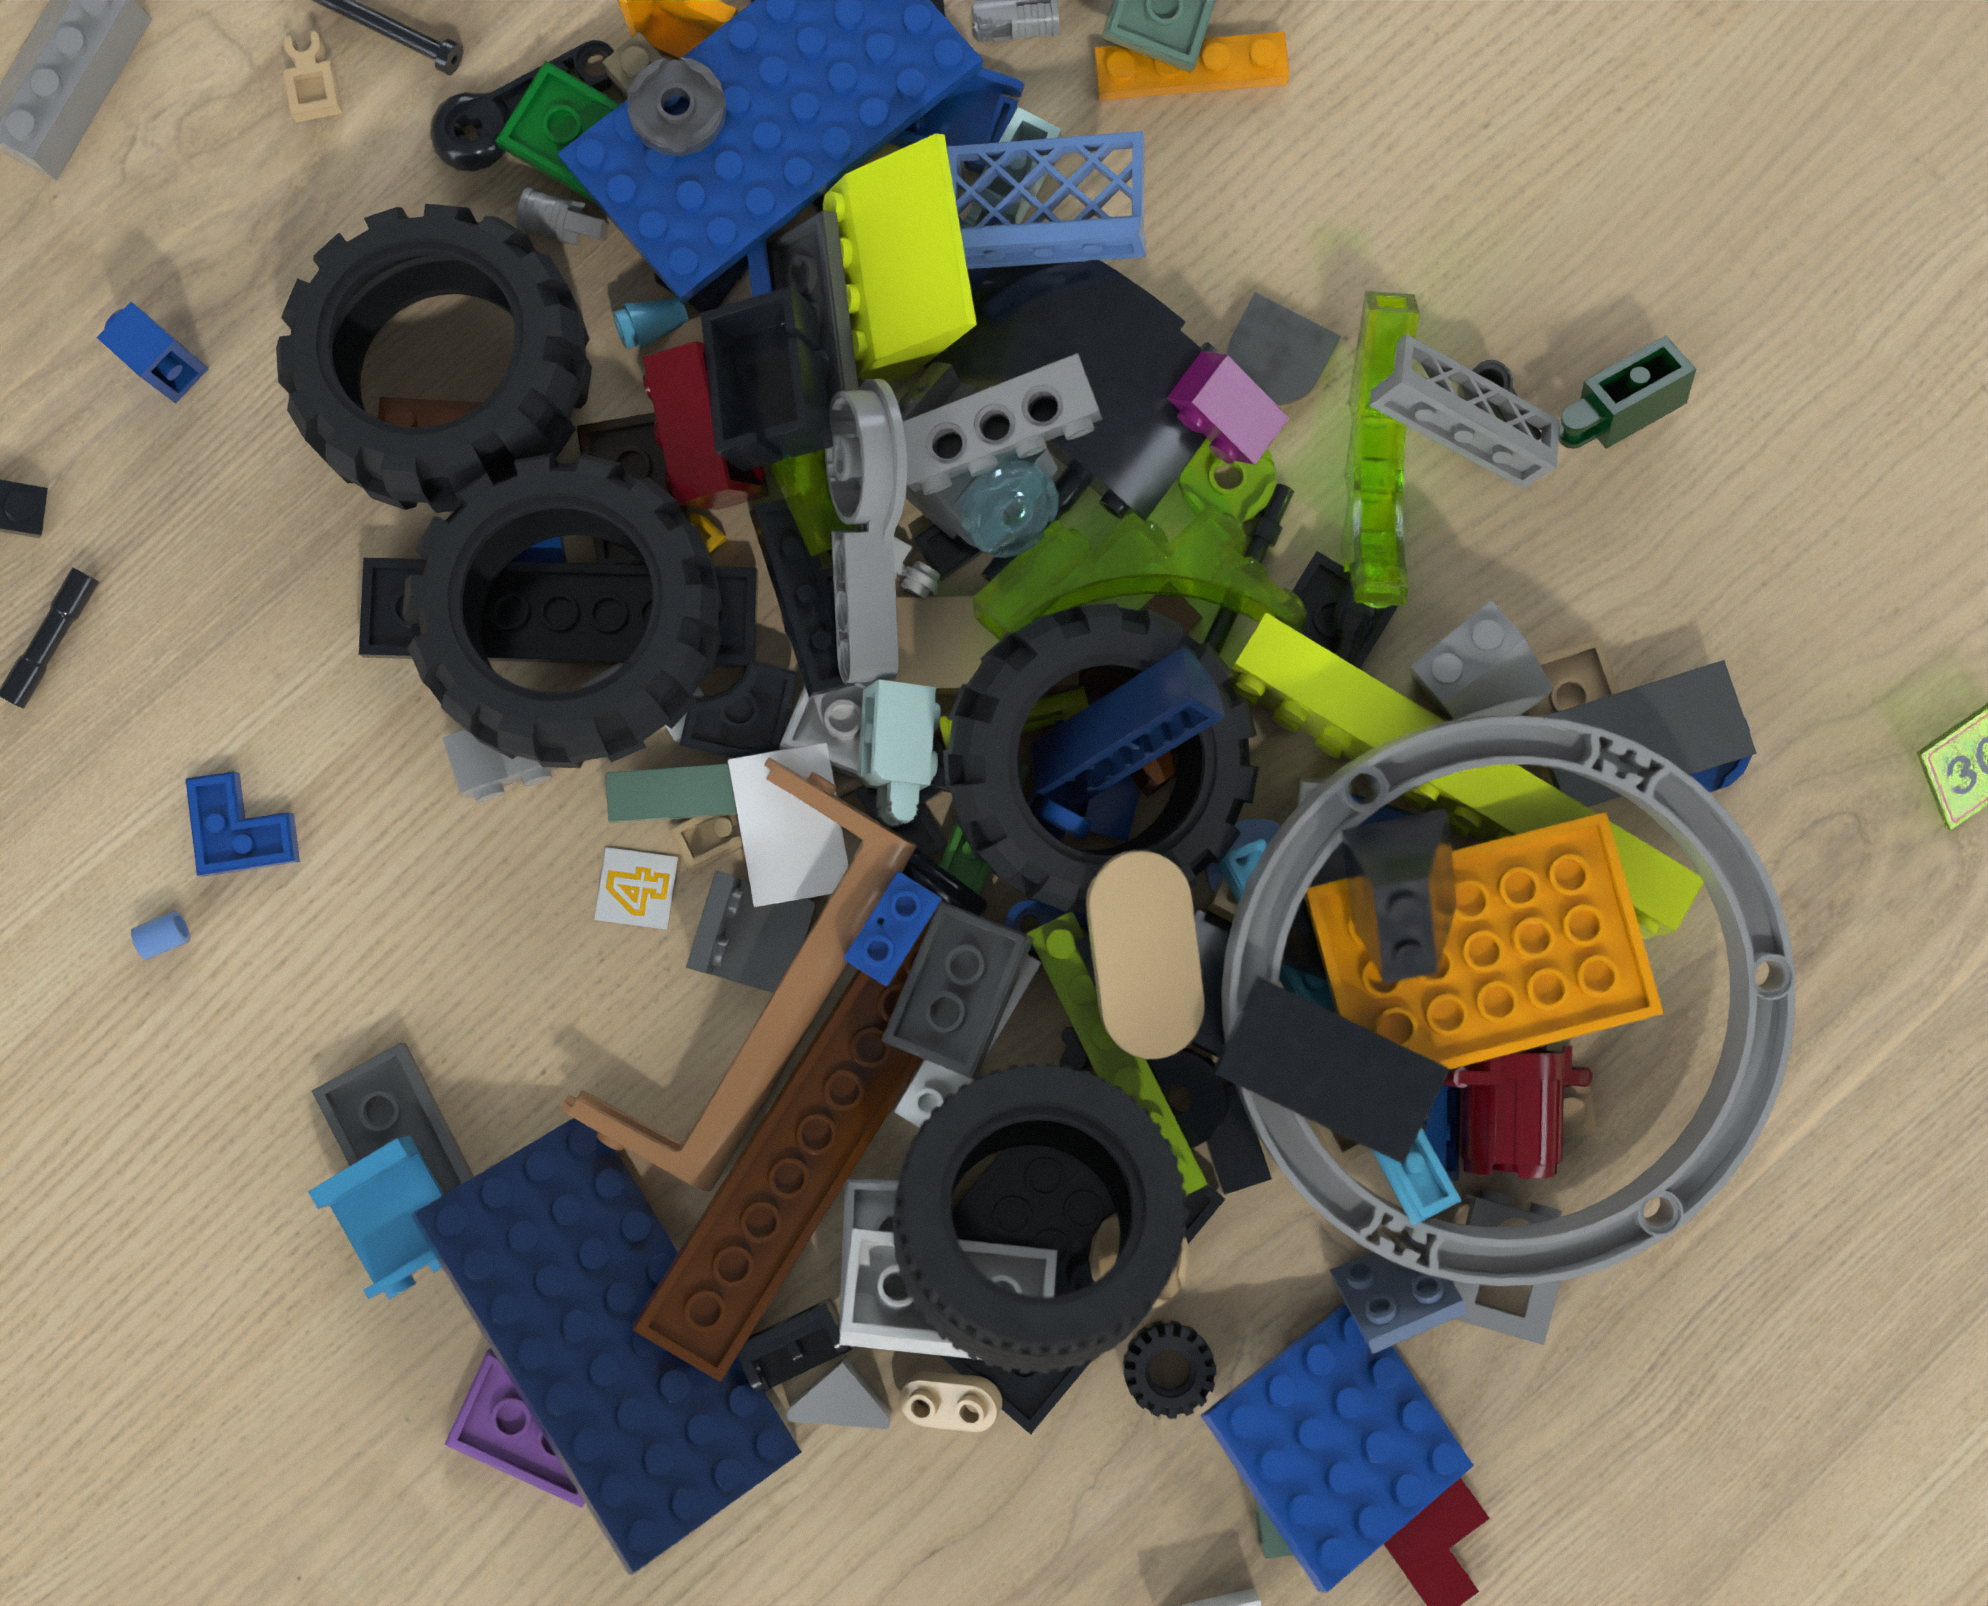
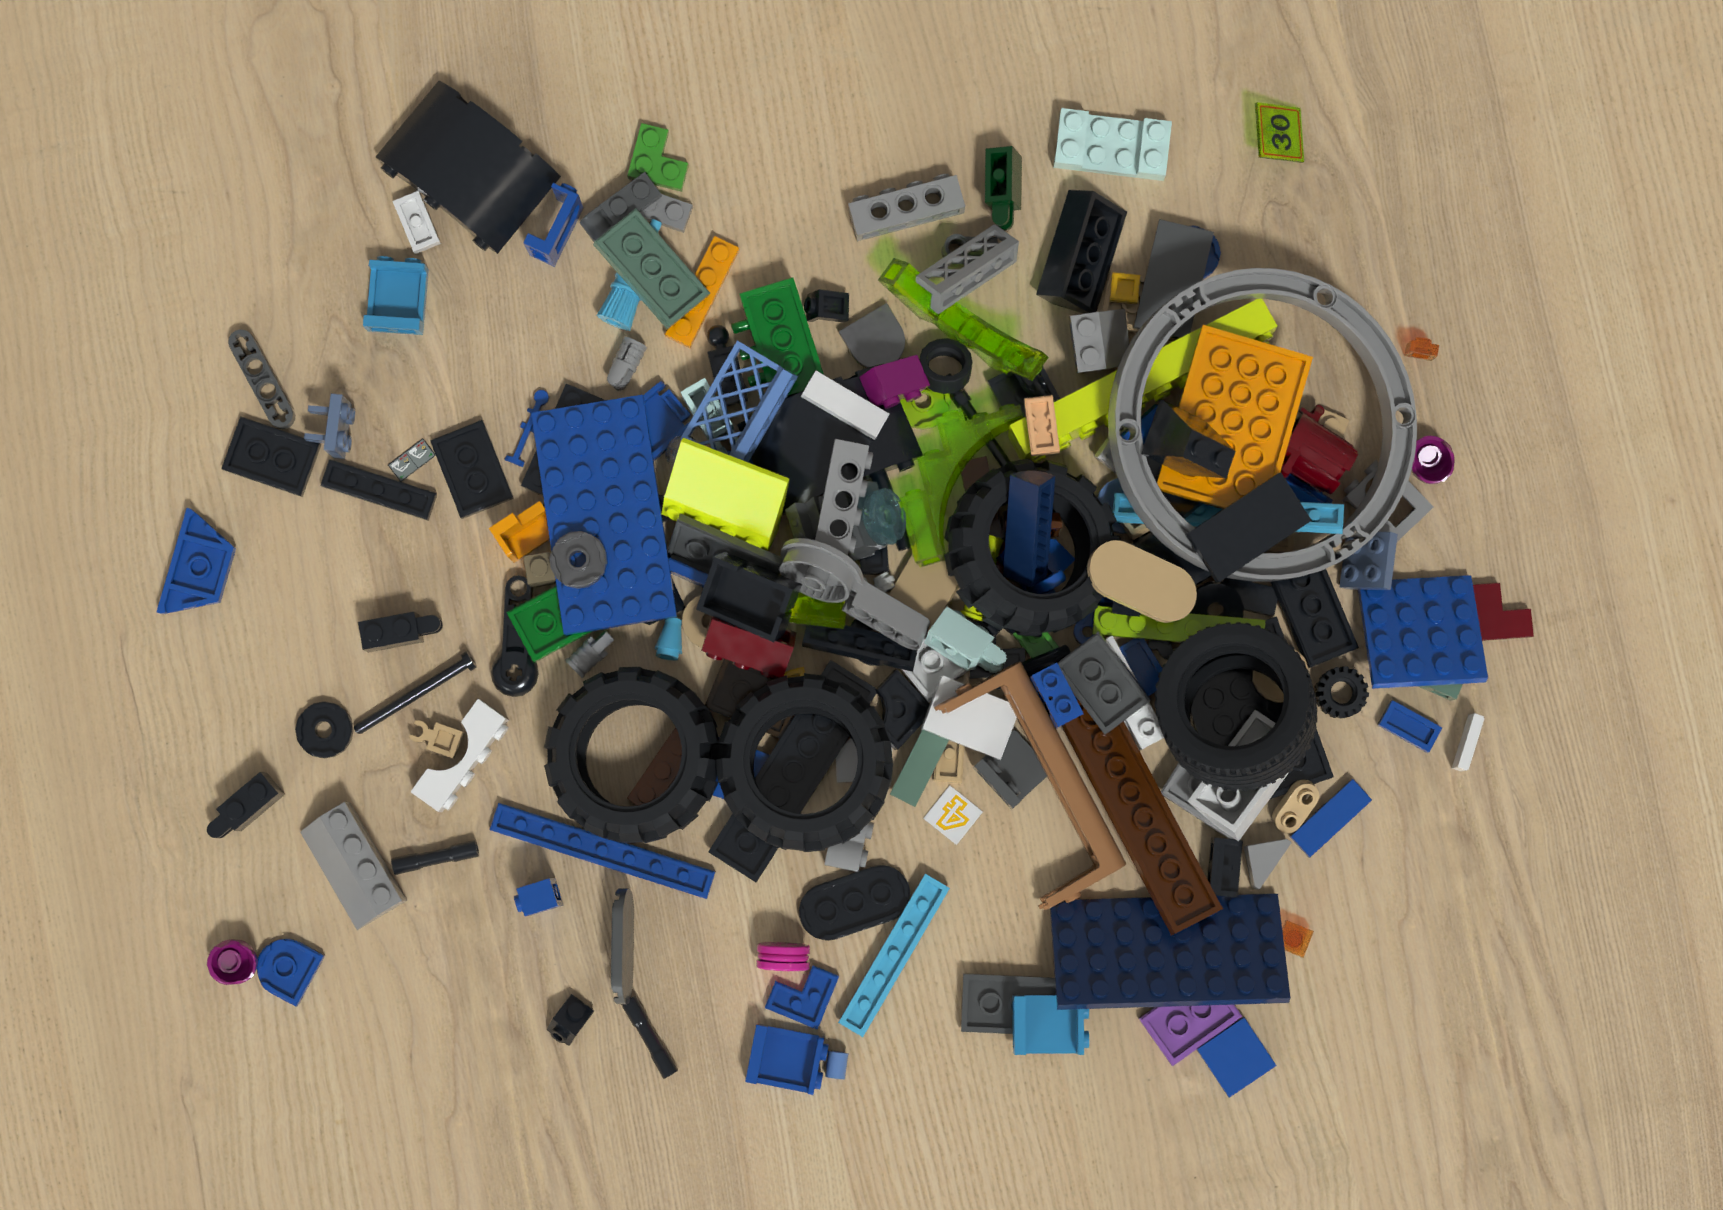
camera: 65 degrees left, 0 degrees up
(116, 157) = (417, 861): none -> black piece
(127, 853) = (786, 1059): none -> blue panel
(149, 515) = (622, 946): none -> dark grey tile
(269, 758) = (783, 956): none -> dark pink head
(294, 464) = (602, 851): none -> blue tile
(359, 130) = (439, 786): none -> white arch
(371, 923) = (894, 955): none -> medium azure plate
(419, 819) = (854, 902): none -> black tile
(514, 1536) = (1236, 1057): none -> blue tile
(748, 1521) = (1296, 938): none -> clear orange plate
(967, 1466) = (1330, 818): none -> blue tile
(1030, 1032) = (1142, 663): none -> blue tile
(1134, 119) = (718, 337): none -> black plate
(1144, 349) = (845, 405): none -> white tile
(1181, 1507) = (1409, 726): none -> blue tile
(1200, 204) = (779, 332): none -> green piece
(1260, 1261) = (1315, 617): none -> black tile
(1282, 253) = (827, 306): none -> black bracket
(1293, 658) = (1041, 425): none -> light nougat plate
(1325, 458) = (949, 348): none -> black tyre
(1504, 305) = (868, 226): none -> light grey brick
(1584, 671) = (1124, 288): none -> yellow tile
(1602, 574) = (1081, 251): none -> black slope
(1616, 1301) = (1433, 460): none -> magenta hair
(1777, 1181) = (1422, 349): none -> clear orange plate
(1789, 525) = (1112, 145): none -> light aqua piece

